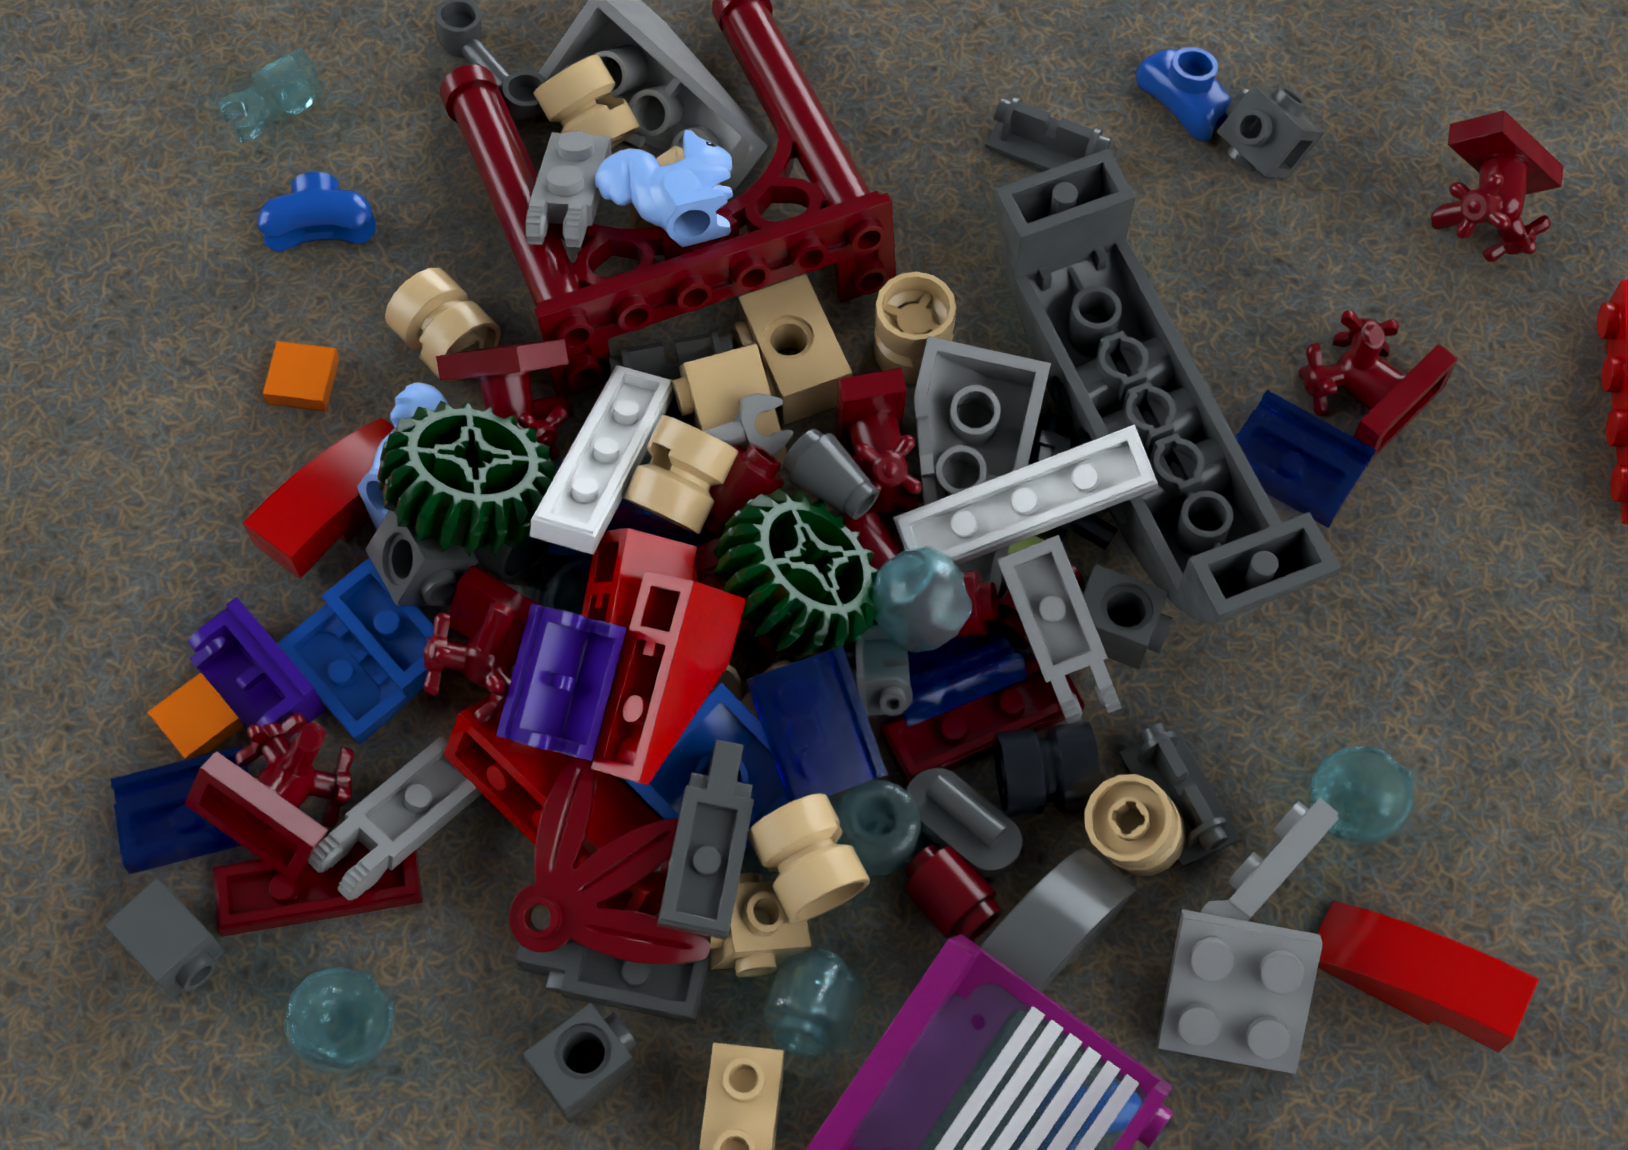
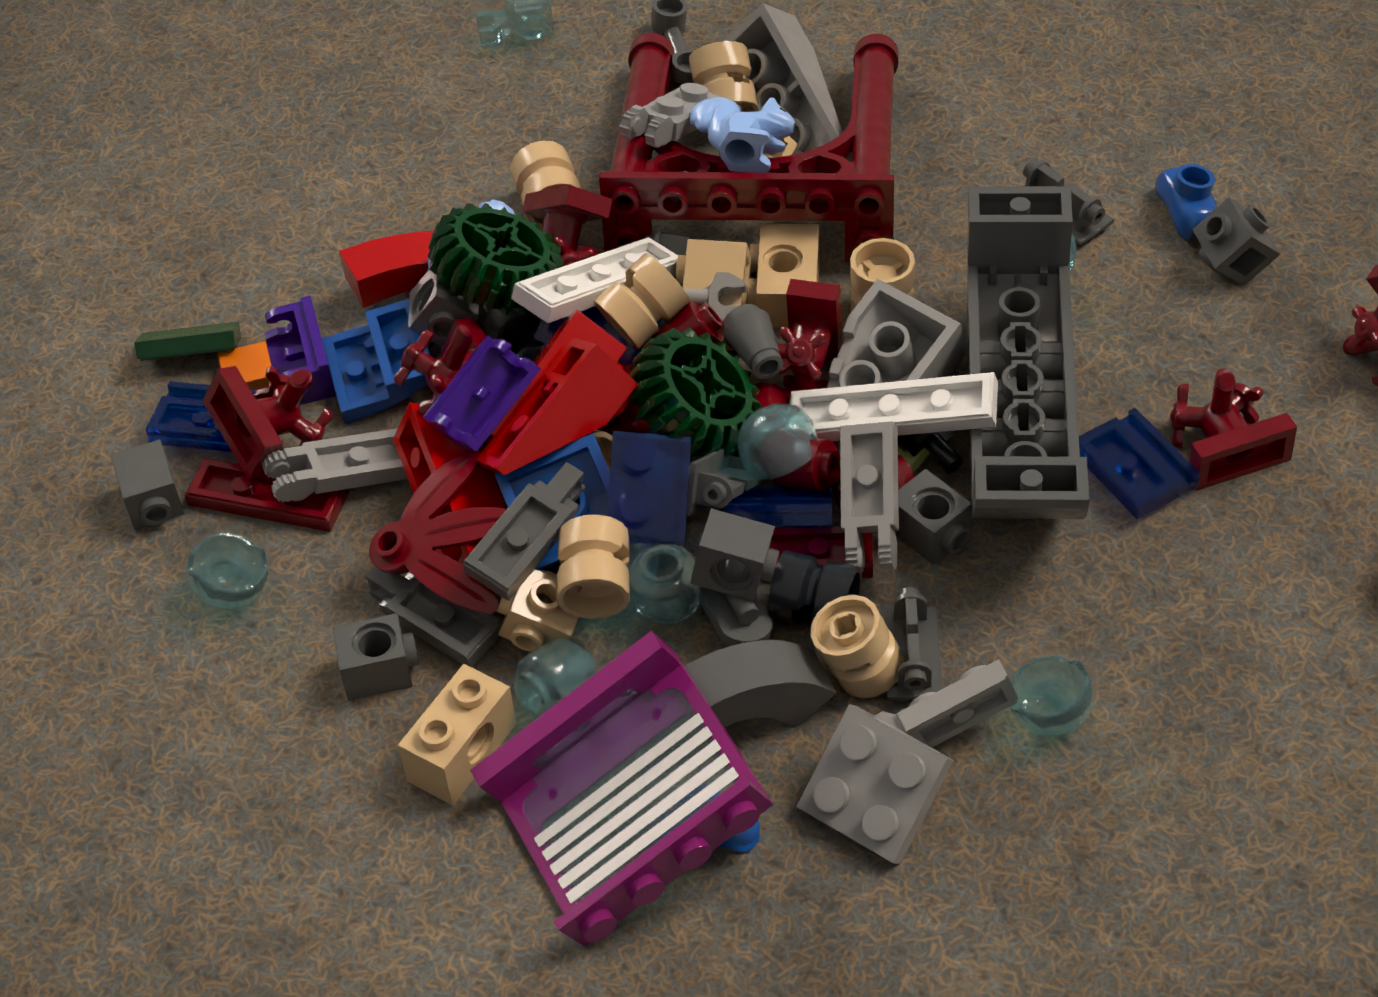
camera: 30 degrees right, 15 degrees down
(99, 710) = (187, 341): none -> dark green tile
(301, 376) = (438, 192): orange tile -> none
(315, 213) = (503, 98): blue piece -> none
(951, 893) = (694, 634): dark red brick -> none
(959, 776) = (734, 555): none -> dark grey brick
(1425, 974) = (1034, 833): red slope -> none

